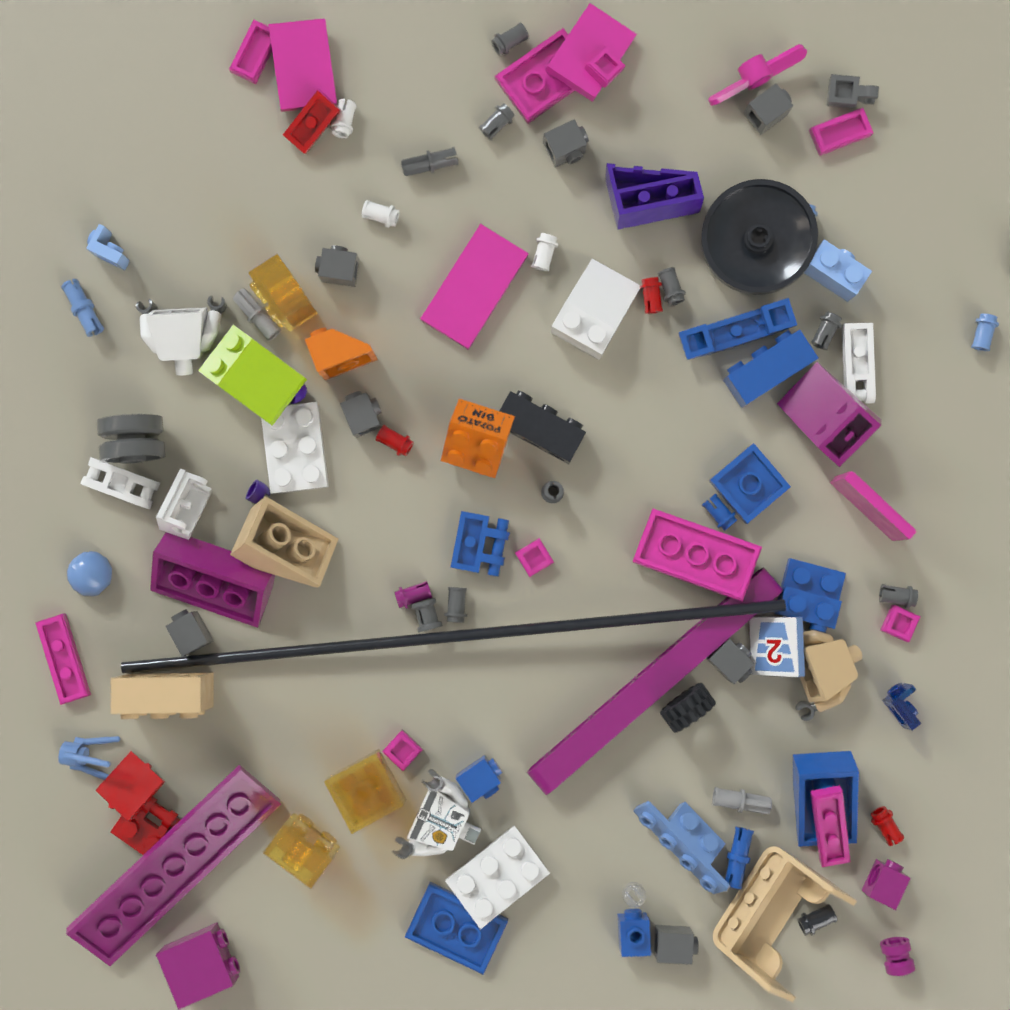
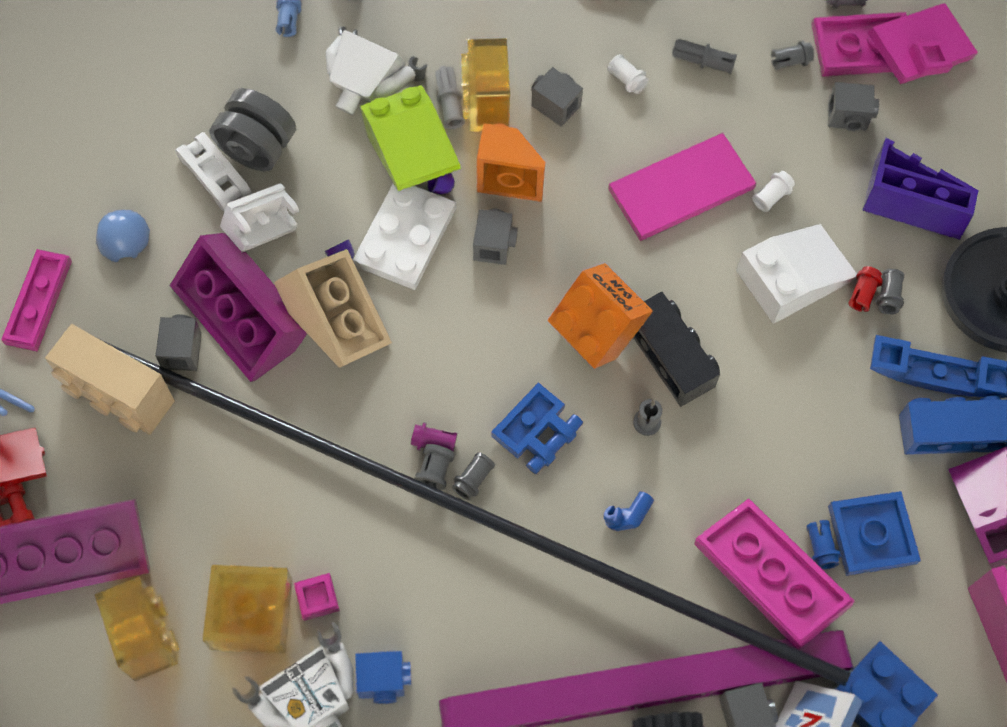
camera: 30 degrees right, 20 degrees down
(394, 440) = (515, 286): red pin -> none
(534, 557) = (587, 477): dark pink tile -> none
(578, 570) = (628, 518): none -> blue arm

